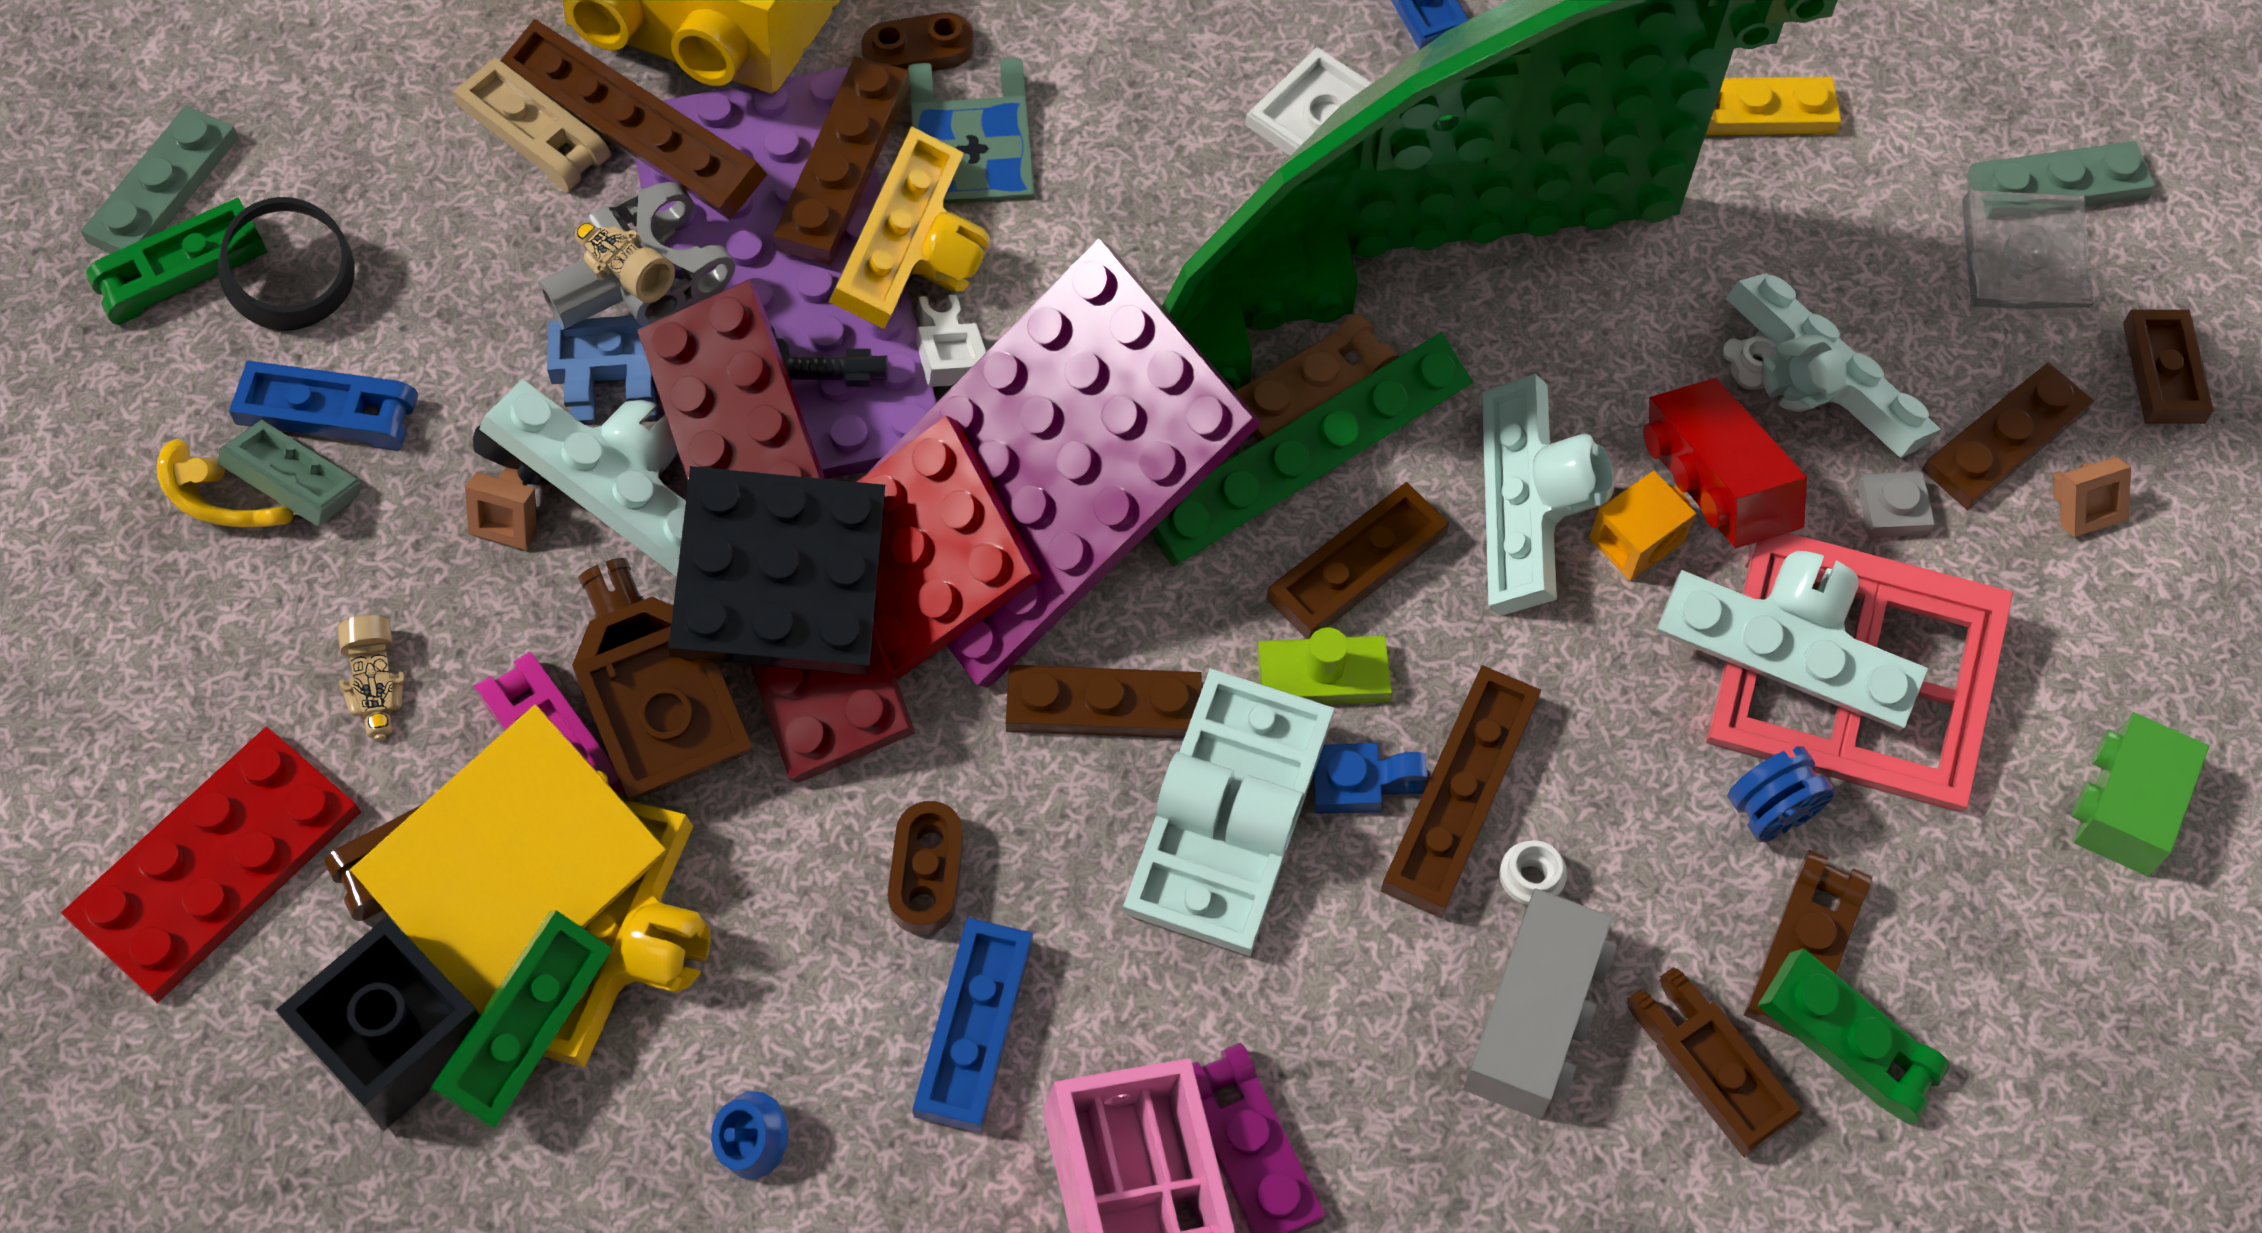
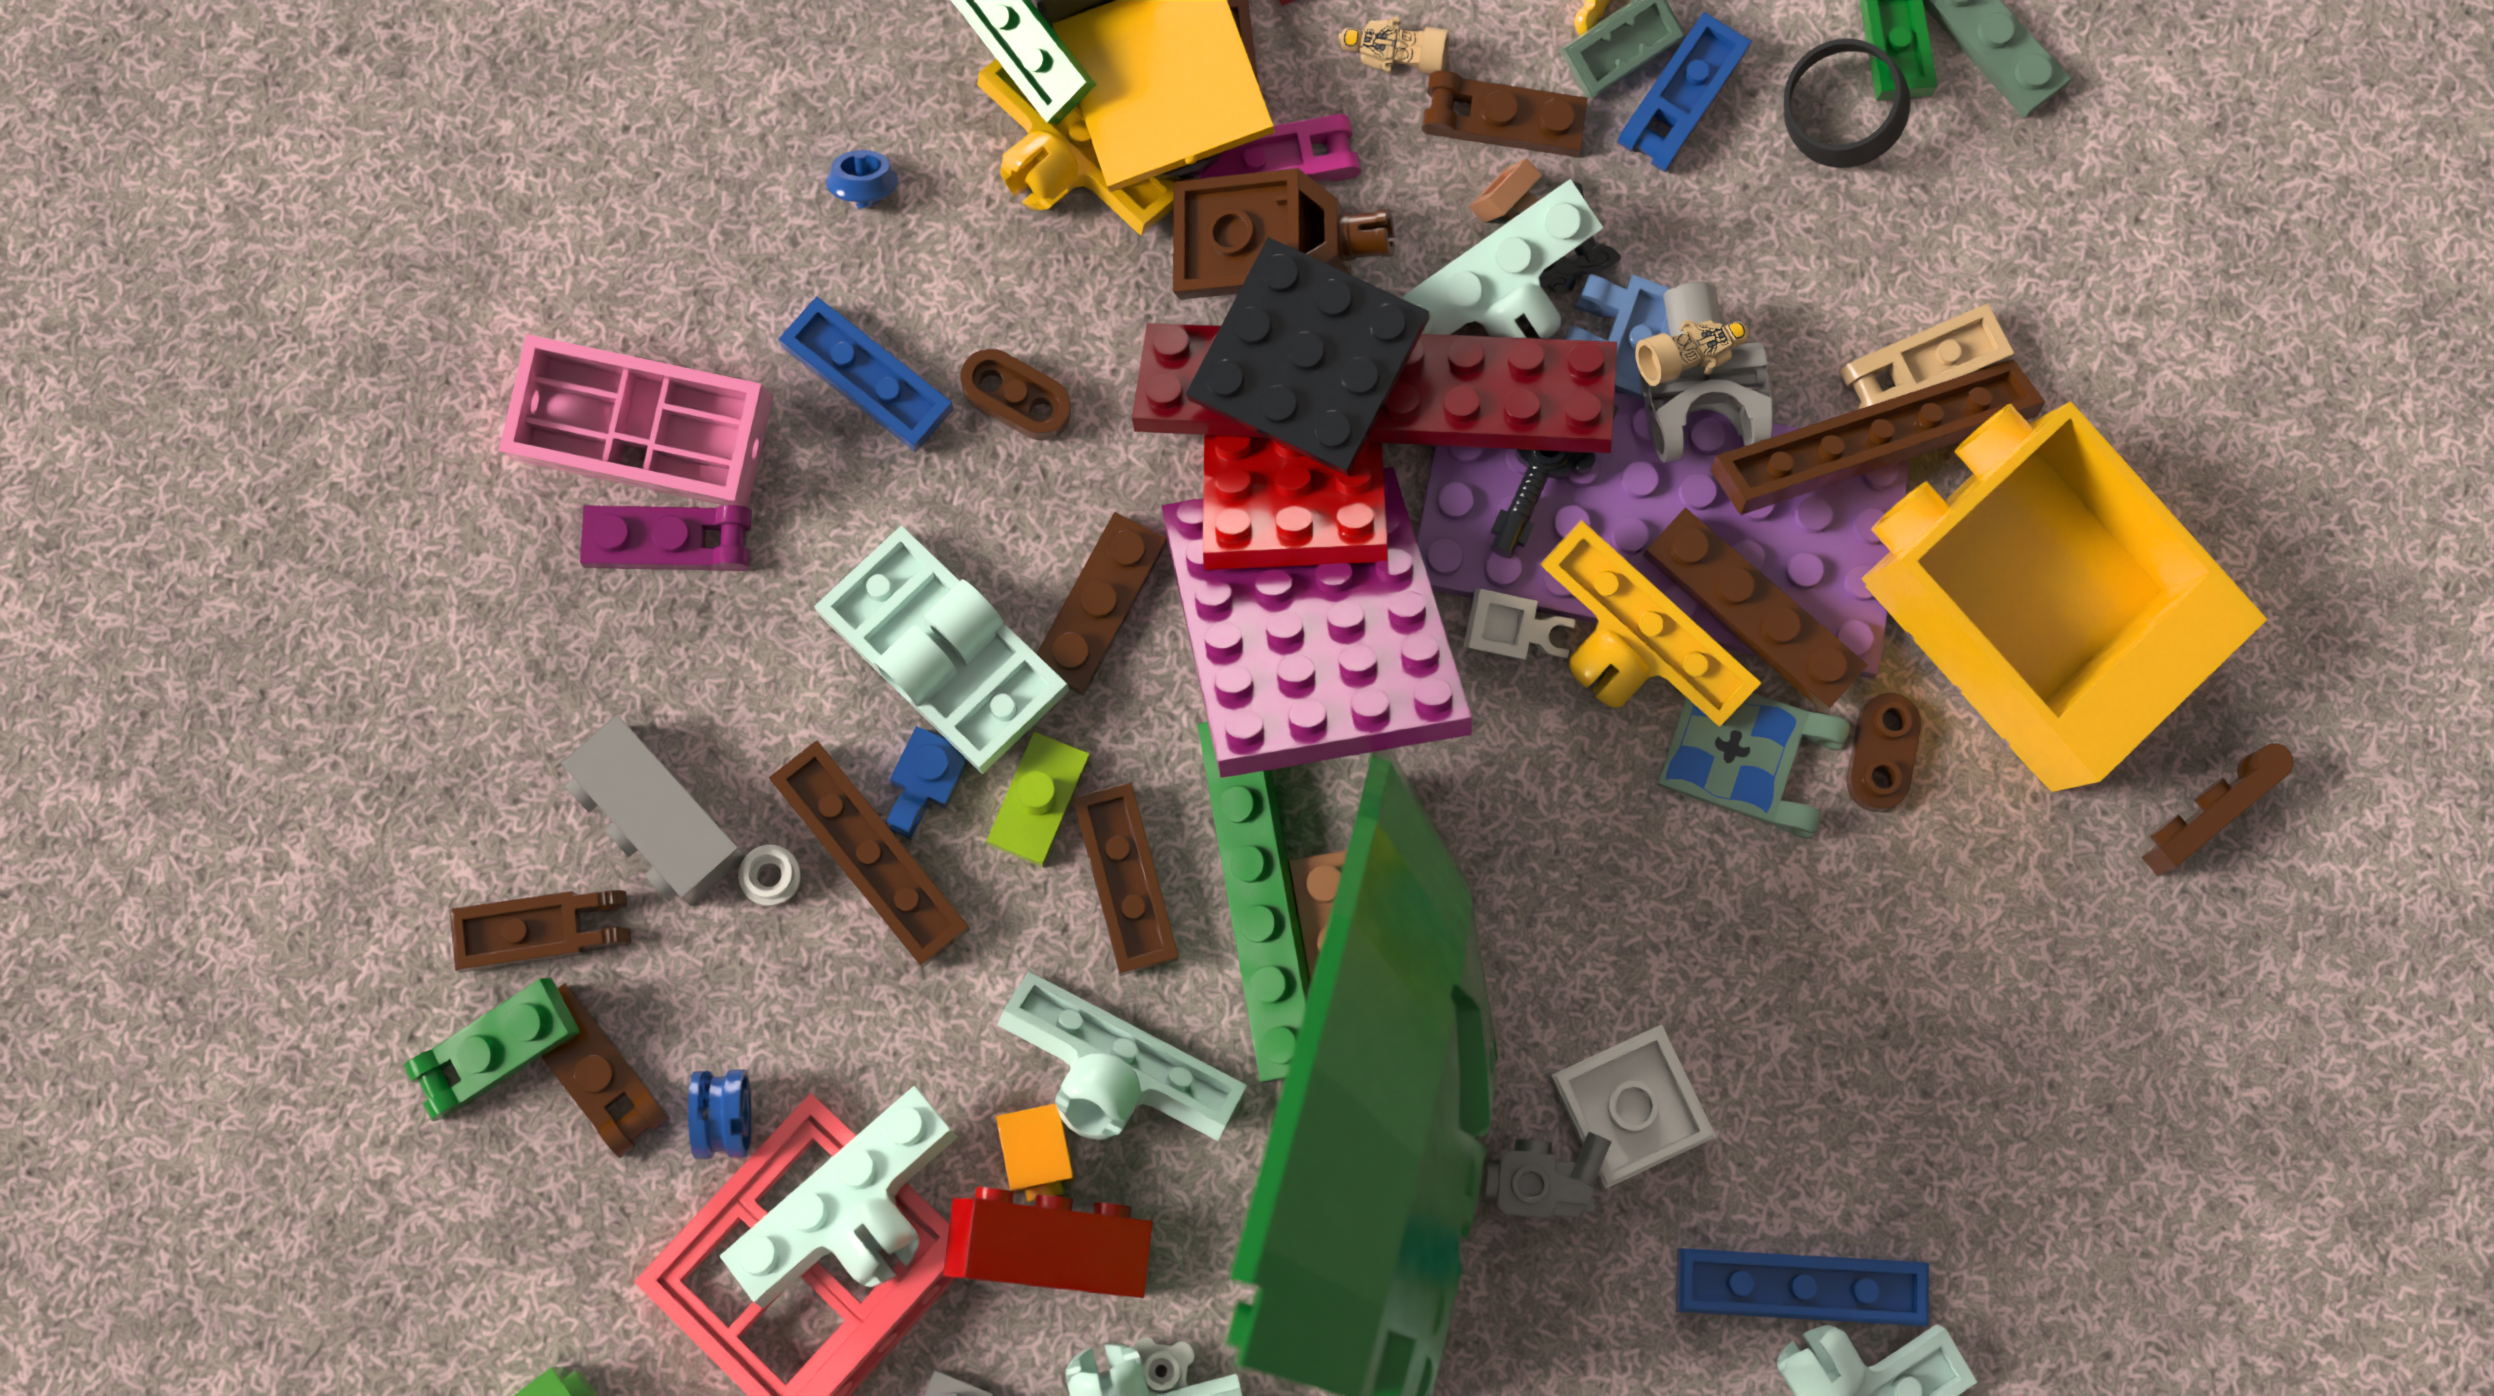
camera: 110 degrees right, 15 degrees up
(410, 550) = (1505, 115): none -> reddish brown plate

